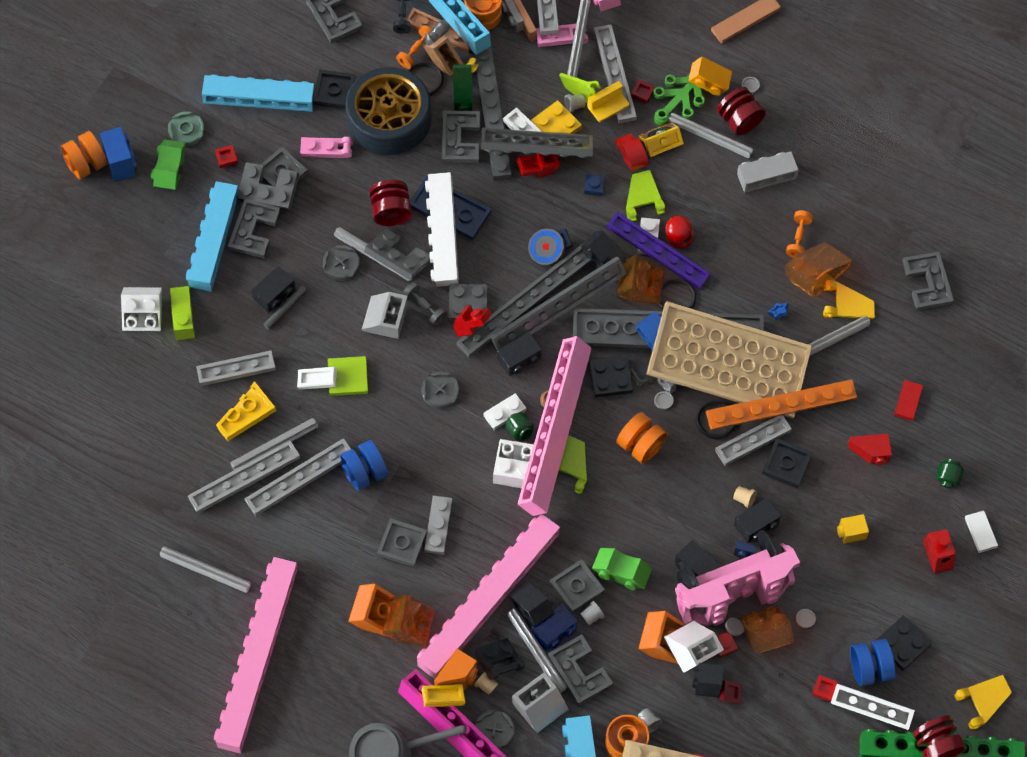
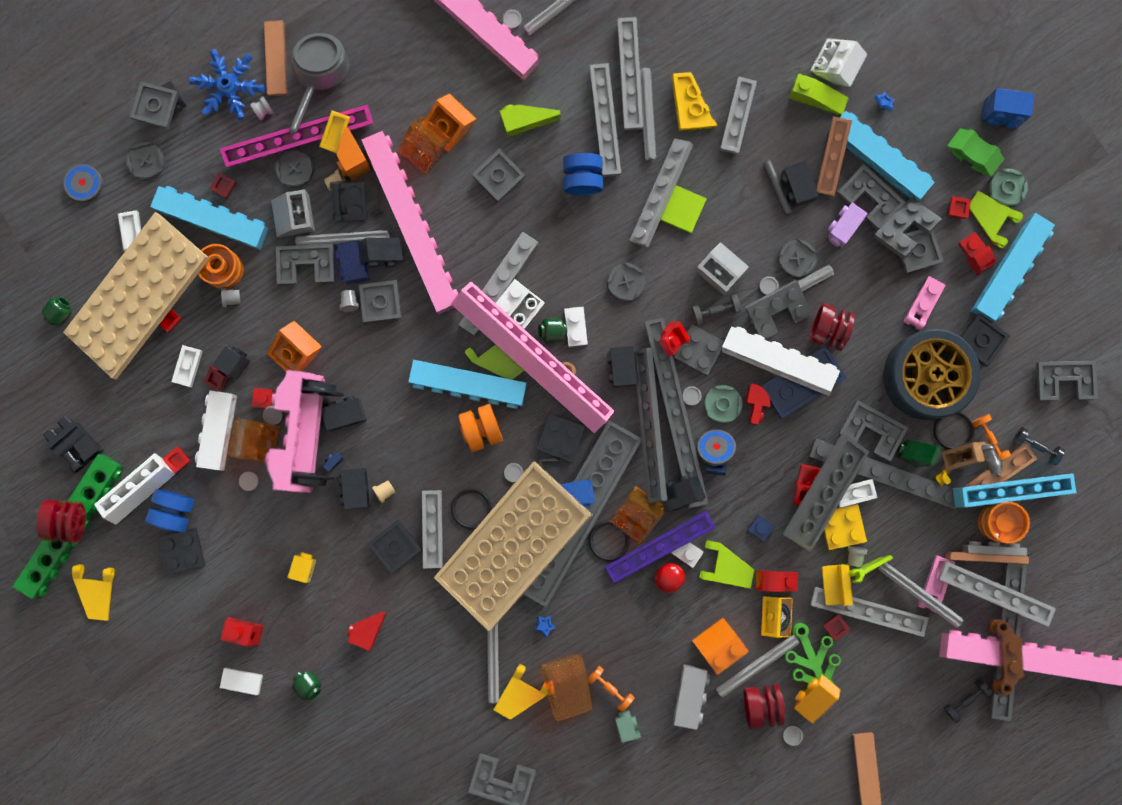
camera: 120 degrees right, 20 degrees up
(79, 157) = (1022, 74): orange wheel -> none
(159, 256) = (884, 101): none -> blue piece
(219, 130) = (991, 216): none -> lime flag
(233, 271) = (833, 156): none -> nougat tile
(243, 608) = (512, 19): none -> light grey piece
(261, 123) = (978, 255): none -> red brick
(290, 235) = (847, 224): none -> lavender brick
(317, 378) = (691, 180): white tile -> none
(338, 549) = (524, 118): none -> lime slope
(342, 397) = (661, 192): none -> light grey plate
(378, 274) = (768, 285): none -> light grey piece
(438, 525) = (499, 215): light grey plate -> none
(486, 234) = (758, 399): none -> red brick
(491, 494) = (505, 274): none -> light grey plate
(504, 262) = (723, 404): none -> sand green tile
(510, 290) = (691, 395): none -> light grey piece
(608, 473) = (467, 383): none -> medium azure brick
(621, 568) = (365, 353): bright green brick -> none
(693, 645) = (266, 365): white slope -> none
(712, 168) = (720, 646): none -> orange slope
(735, 725) = (187, 366): none -> white plate
(778, 666) = (216, 430): none -> white brick
(781, 404) = (448, 571): orange plate -> none
(822, 207) = (627, 726): none -> sand green brick
(908, 400) = (397, 692): red tile -> none

